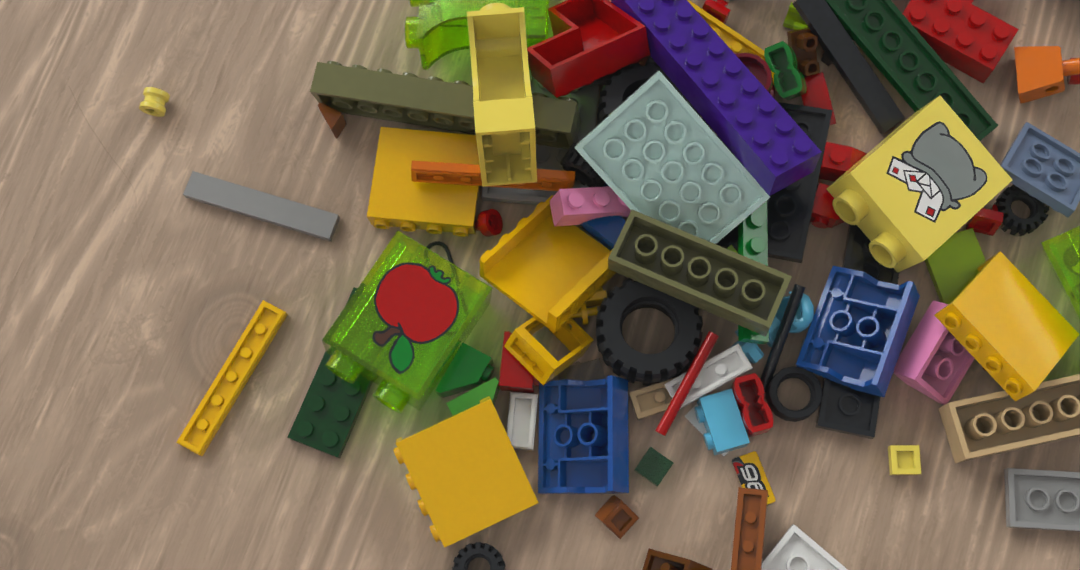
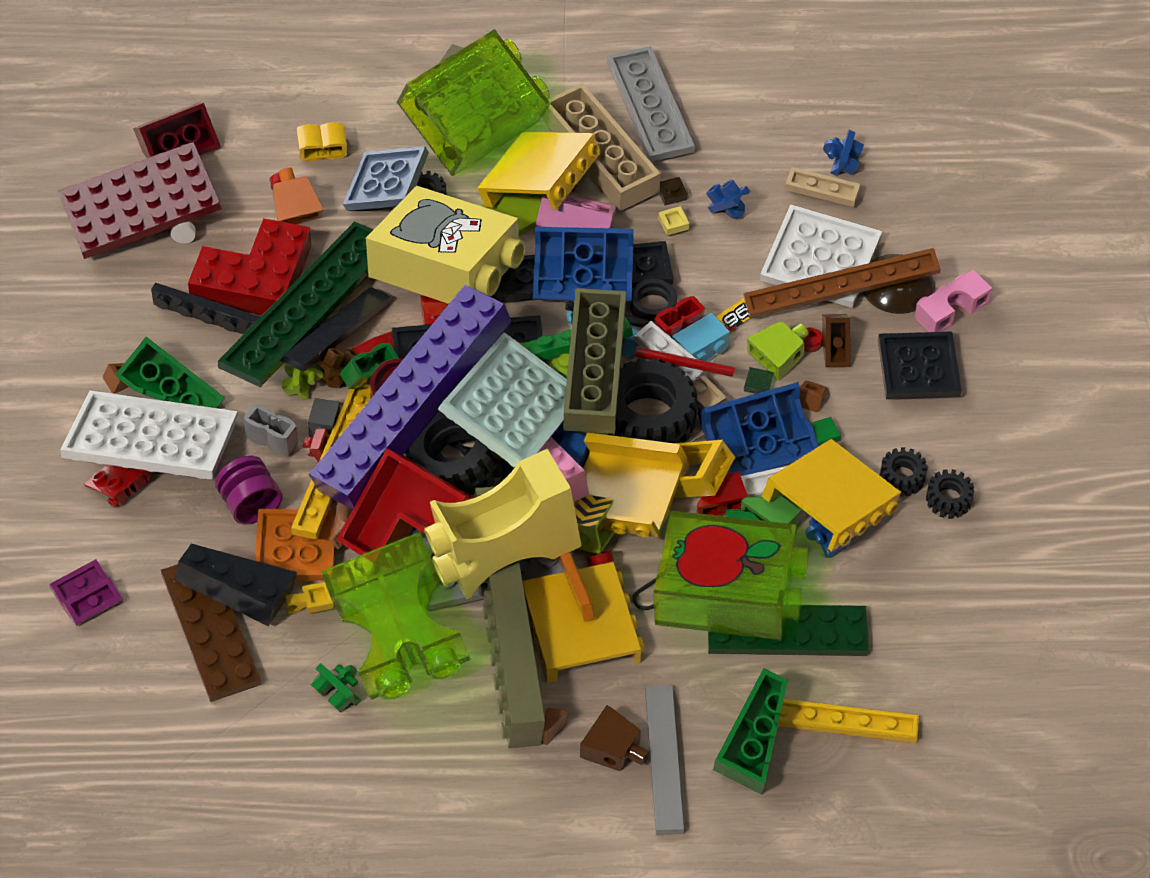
camera: 120 degrees left, 20 degrees down
(232, 280) = (751, 740): none -> green wedge
(291, 165) = (613, 741): none -> reddish brown torso
(527, 216) = (589, 514): none -> piece
(563, 508) = (825, 430): none -> green tile
(684, 502) = (778, 347): none -> lime torso
(691, 546) = (813, 341): none -> red tile
(747, 23) = (323, 415): none -> dark grey brick
(914, 530) = (727, 198): none -> blue hips
(952, 478) = (672, 191): none -> dark brown plate

